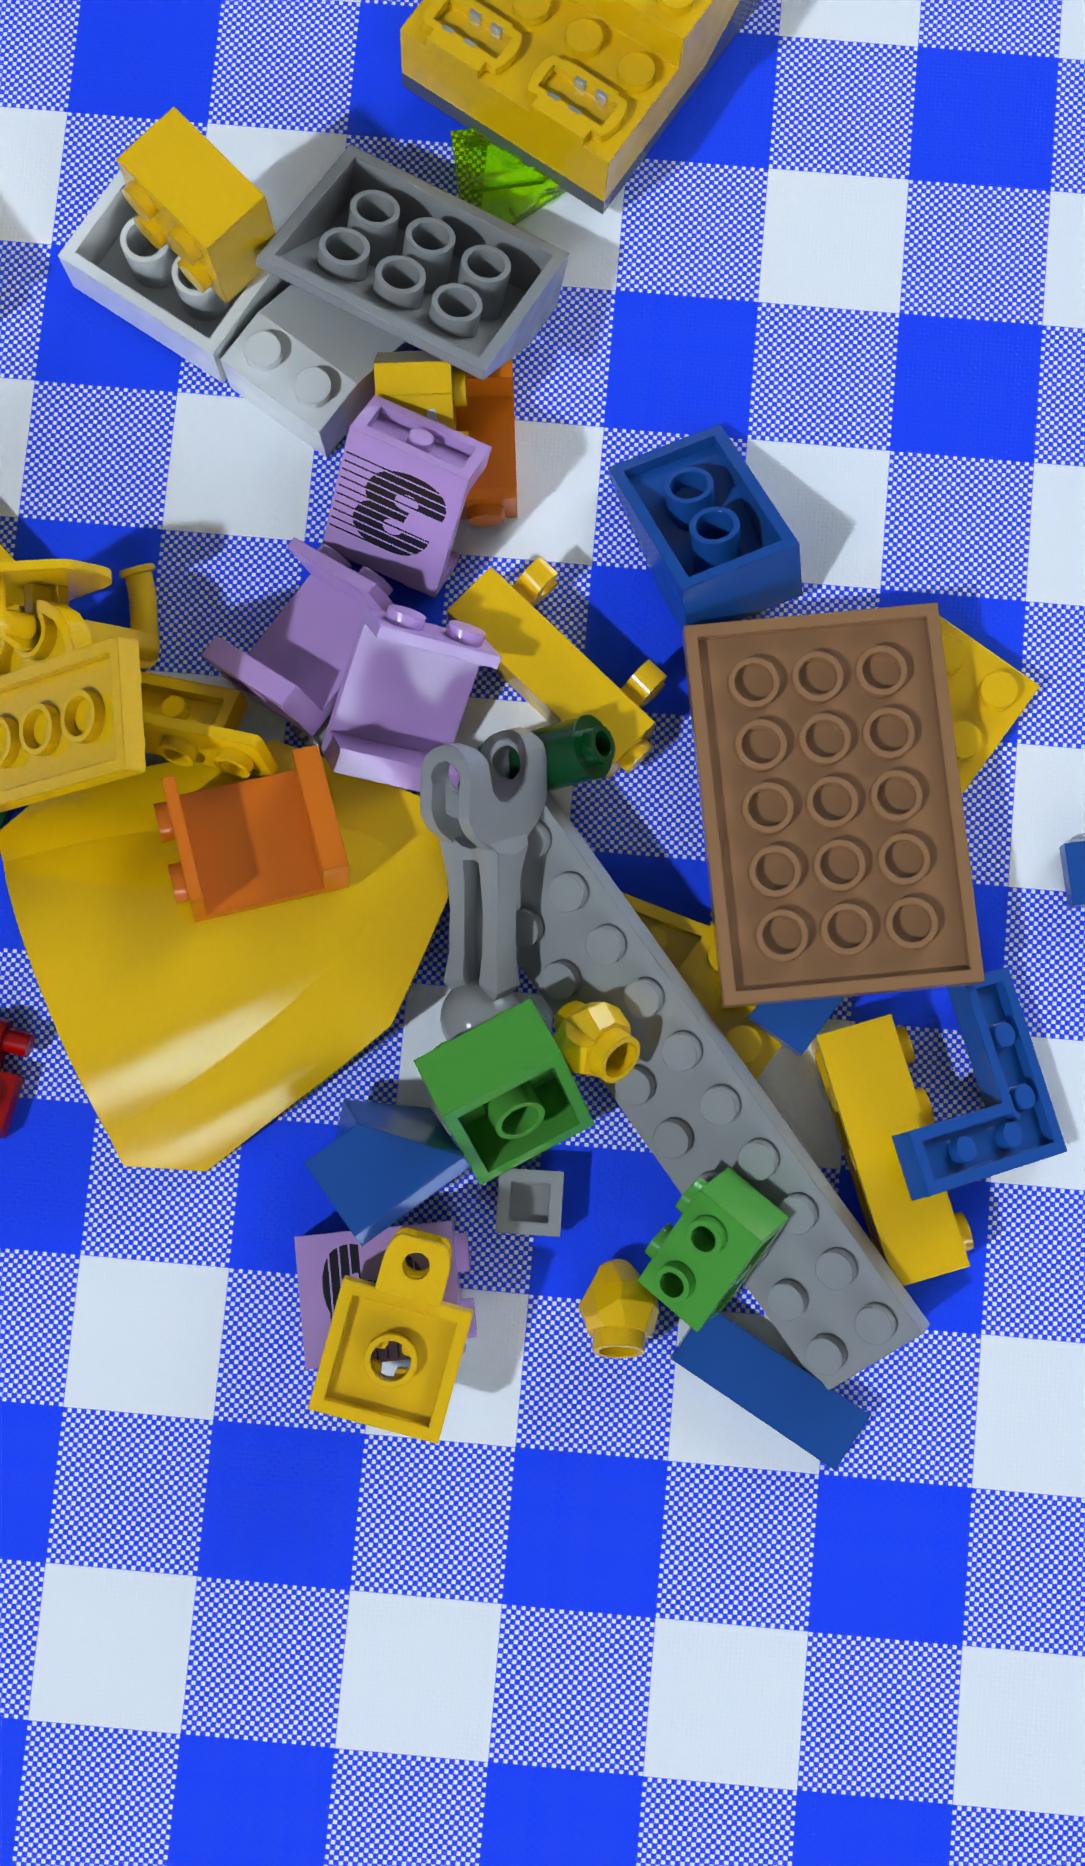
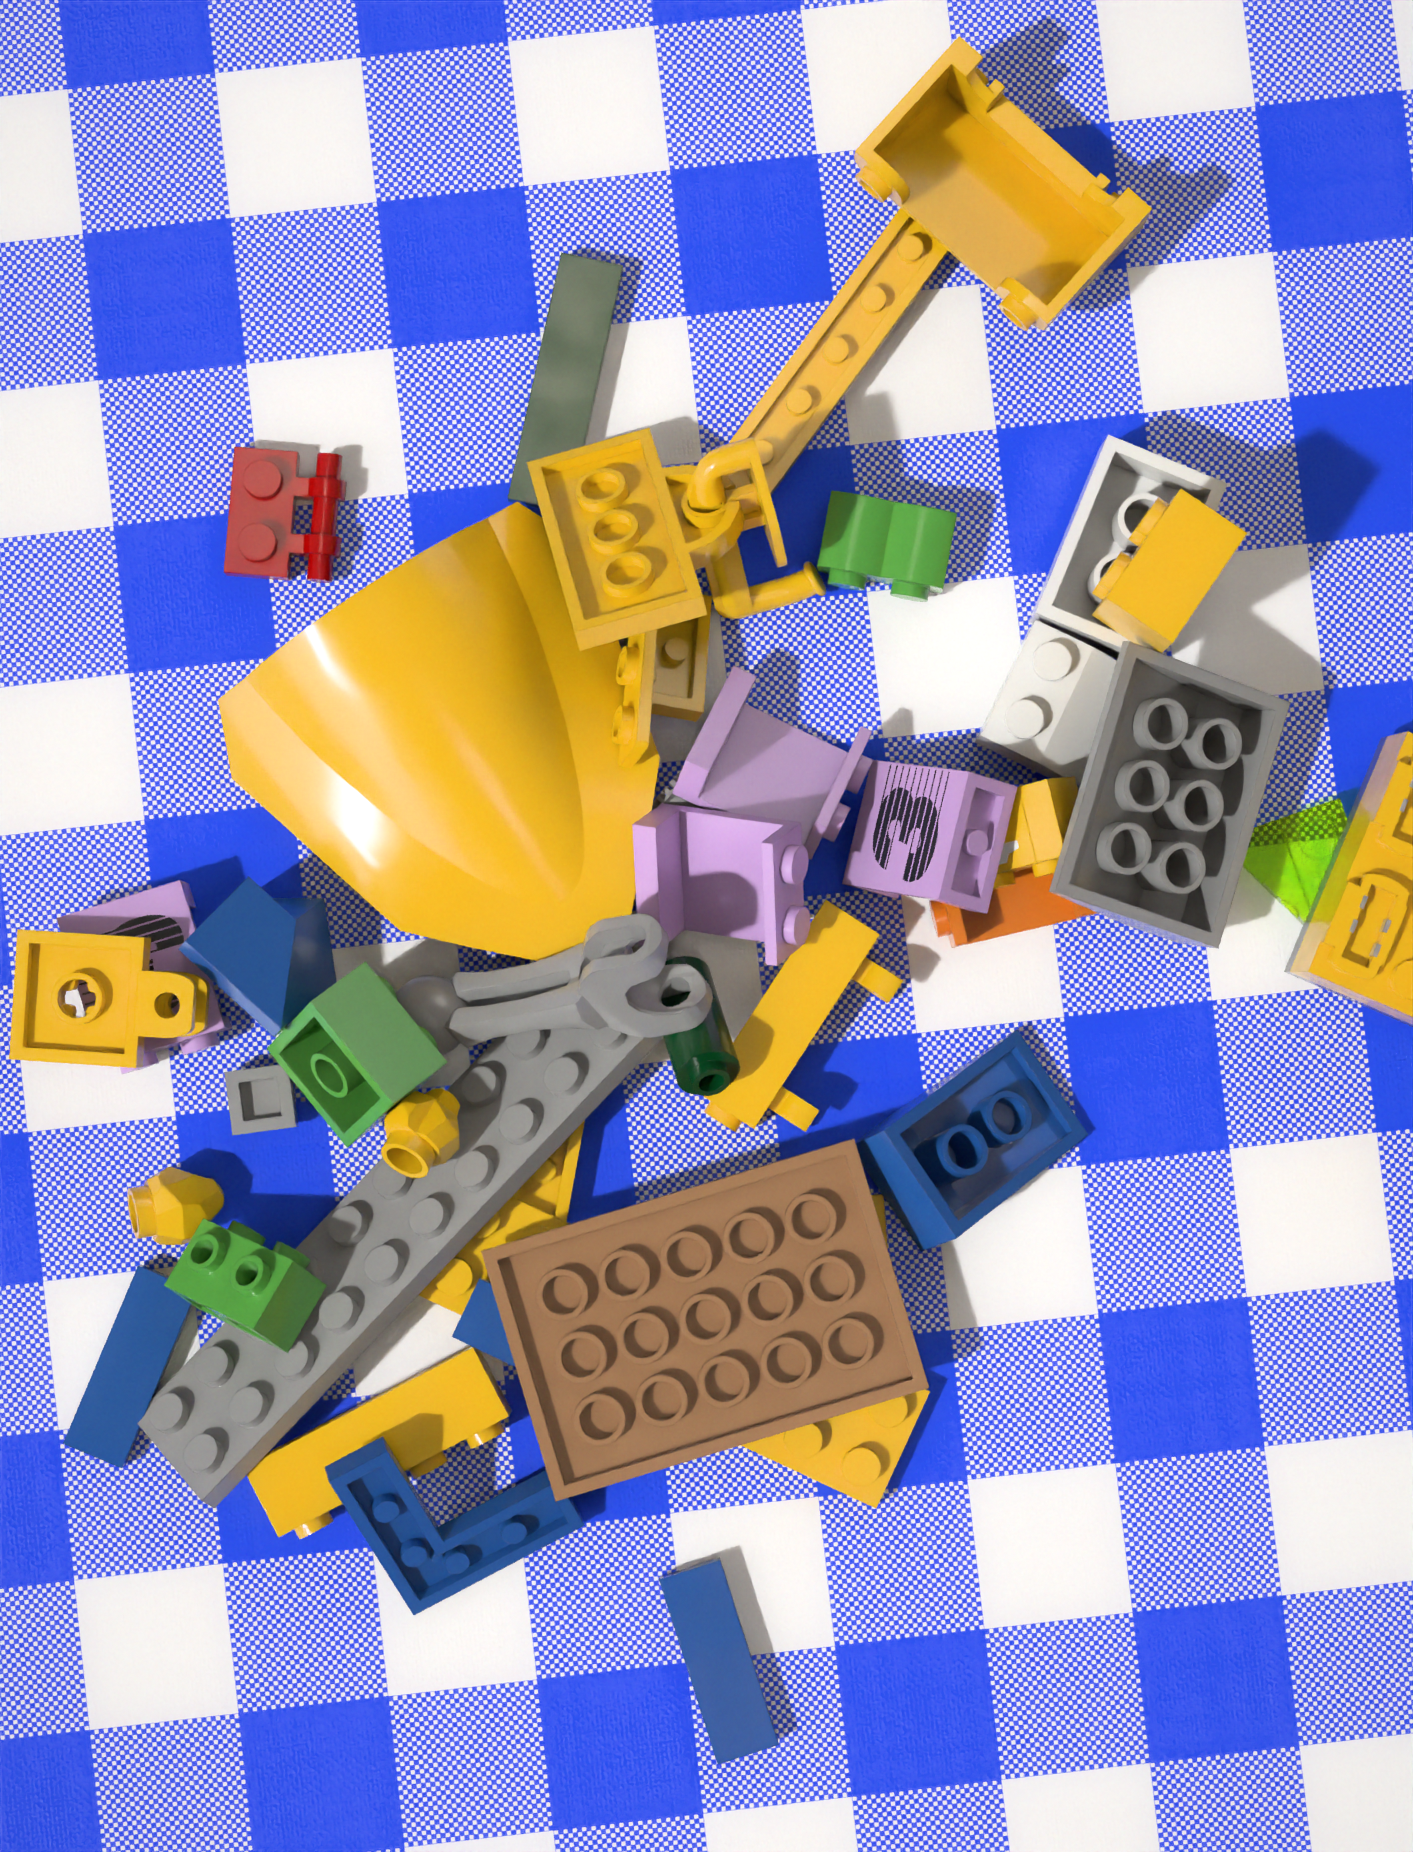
camera: 70 degrees right, 5 degrees up
(118, 493) = (886, 544): none -> bright green brick
(255, 840) = (549, 762): orange panel -> none

